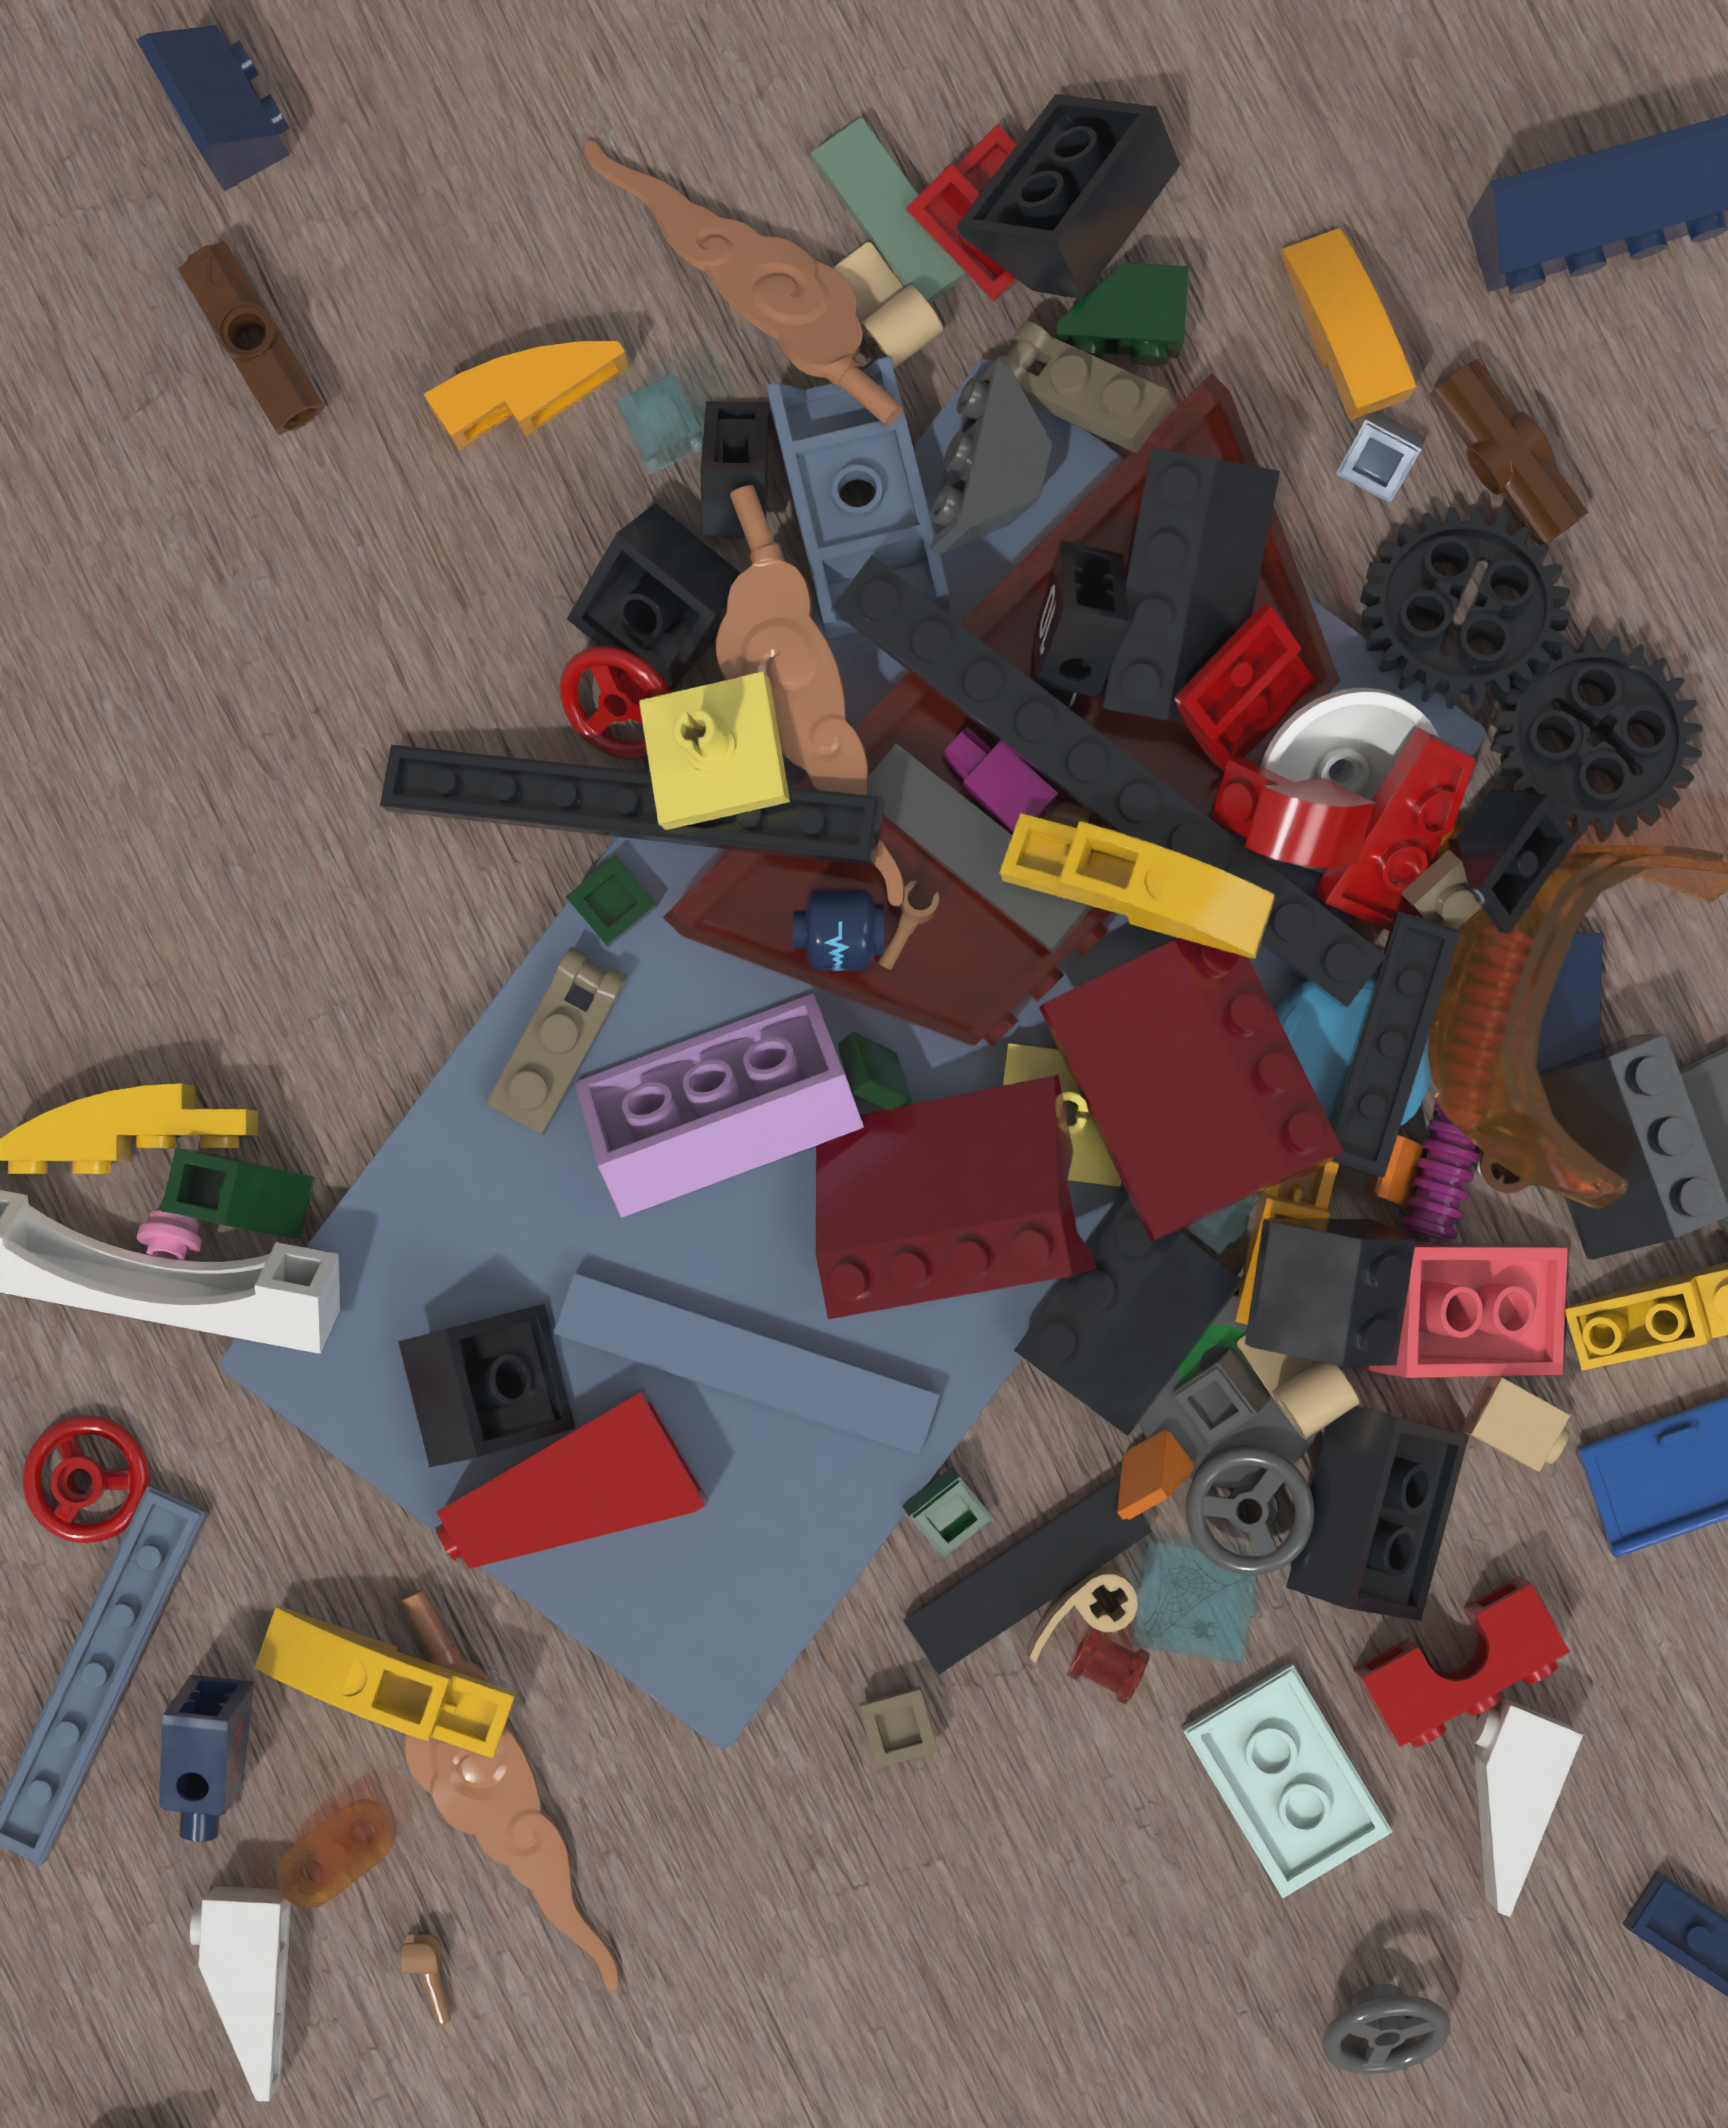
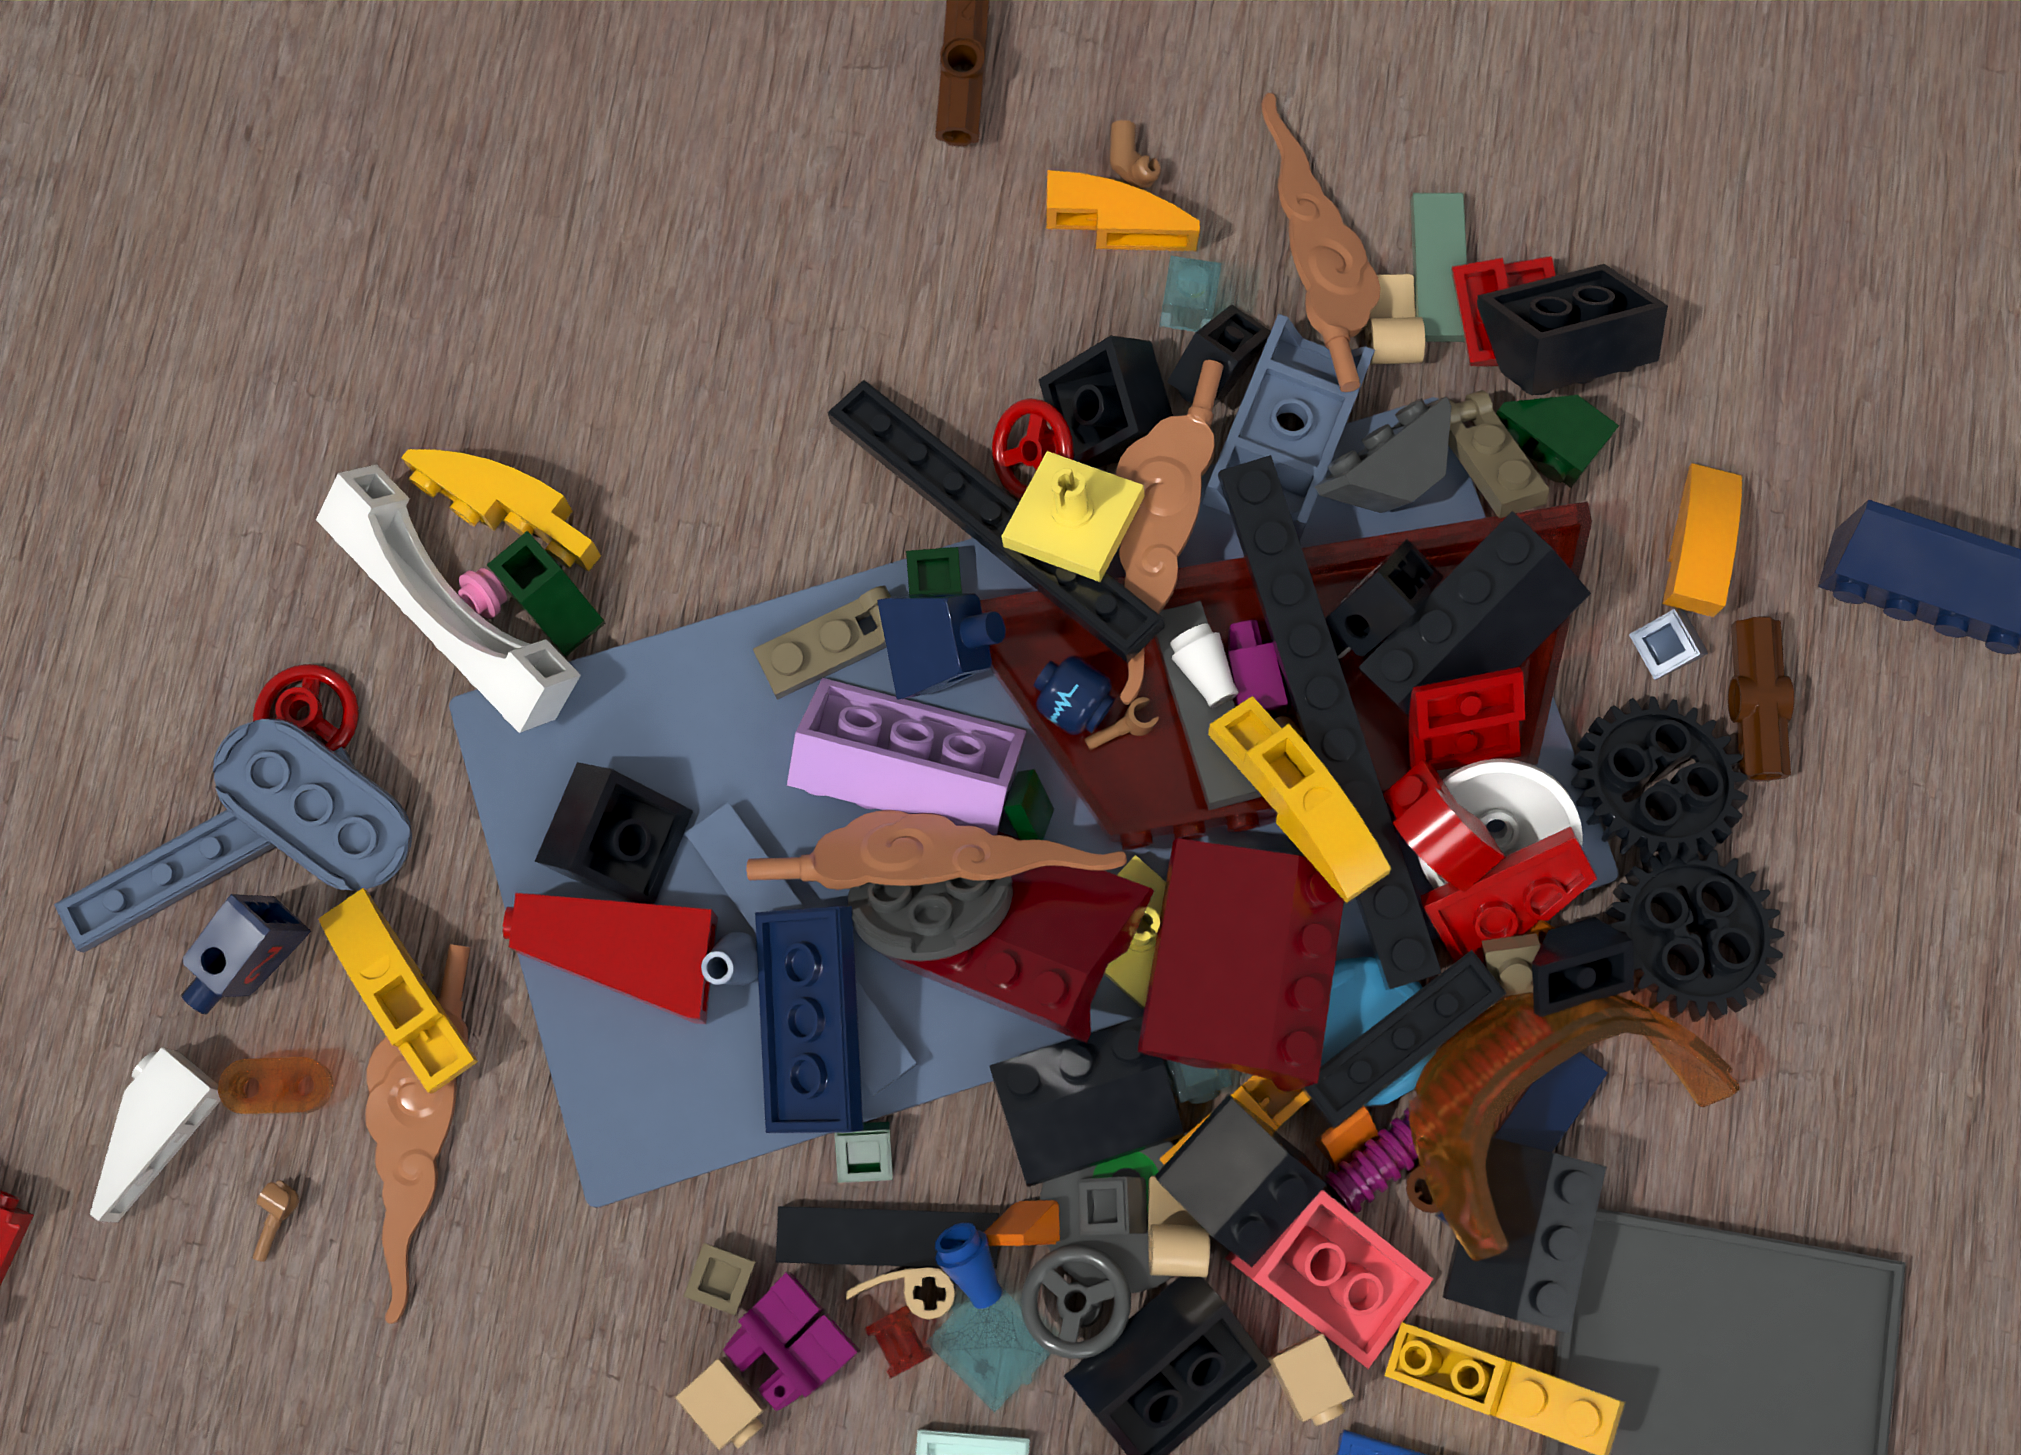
camera: 35 degrees right, 10 degrees down
(163, 1564) = (312, 804): none -> sand blue tile
(491, 320) = (1127, 162): none -> medium nougat arm
(665, 969) = (937, 640): none -> dark blue torso
(694, 1424) = (732, 960): none -> sand blue cone
(803, 1194) = (920, 850): none -> nougat piece
(811, 1431) = (809, 1020): none -> dark blue tile
(842, 1229) = (929, 918): none -> dark grey tile
(949, 810) = (1205, 664): none -> white cone
(986, 1840) = (723, 1405): none -> tan brick
(1035, 1742) = (770, 1328): none -> magenta hips
(1122, 1547) = (968, 1262): none -> blue cone

